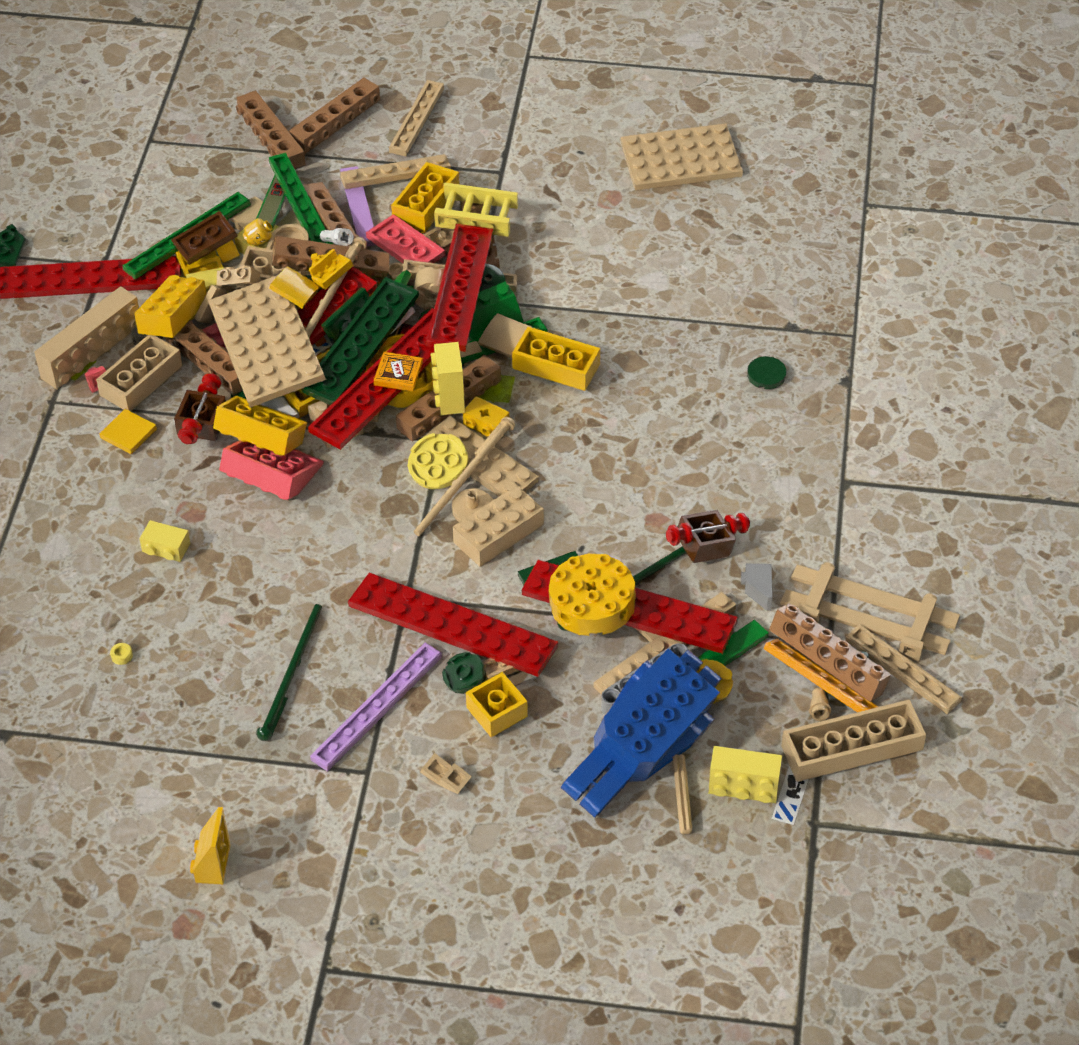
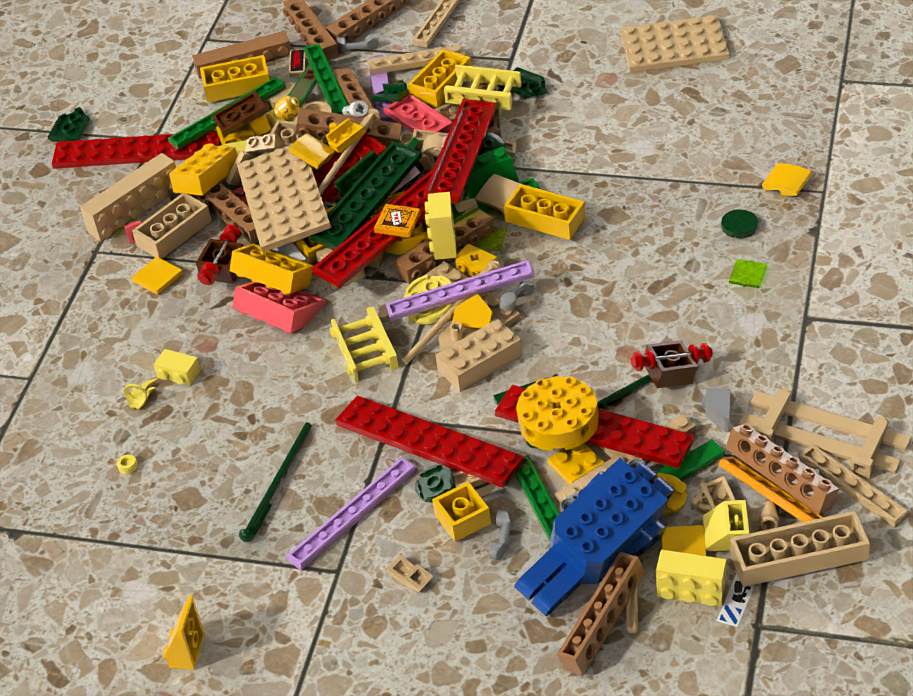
camera: 10 degrees right, 5 degrees down
(125, 572) = (139, 396): none -> light yellow piece
(190, 192) = (233, 78): none -> yellow brick
(194, 162) = (270, 46): none -> medium nougat brick
(259, 172) = (297, 62): none -> slope
(341, 150) = (371, 42): none -> light grey bar
(373, 212) = (392, 92): none -> dark green slope
(384, 499) = (377, 332): none -> light yellow fence
(472, 359) = (465, 214): none -> clear neon green piece
(472, 452) = (460, 290): none -> lavender tile
(489, 478) = (473, 313): none -> yellow slope
(526, 461) = (508, 299): none -> light grey bar
(529, 203) = (530, 84): none -> dark green tile
(538, 744) = (498, 549): none -> light grey bar
(577, 688) = (537, 495): none -> green tile
(611, 648) = (574, 462): none -> yellow plate
(654, 815) = (601, 613): none -> medium nougat brick
(733, 732) = (684, 539): none -> yellow tile
(763, 685) = (712, 494): none -> tan slope
(775, 714) = (723, 523): none -> light yellow slope
(779, 430) = (748, 273): none -> clear neon green piece
(815, 321) = (787, 179): none -> yellow slope

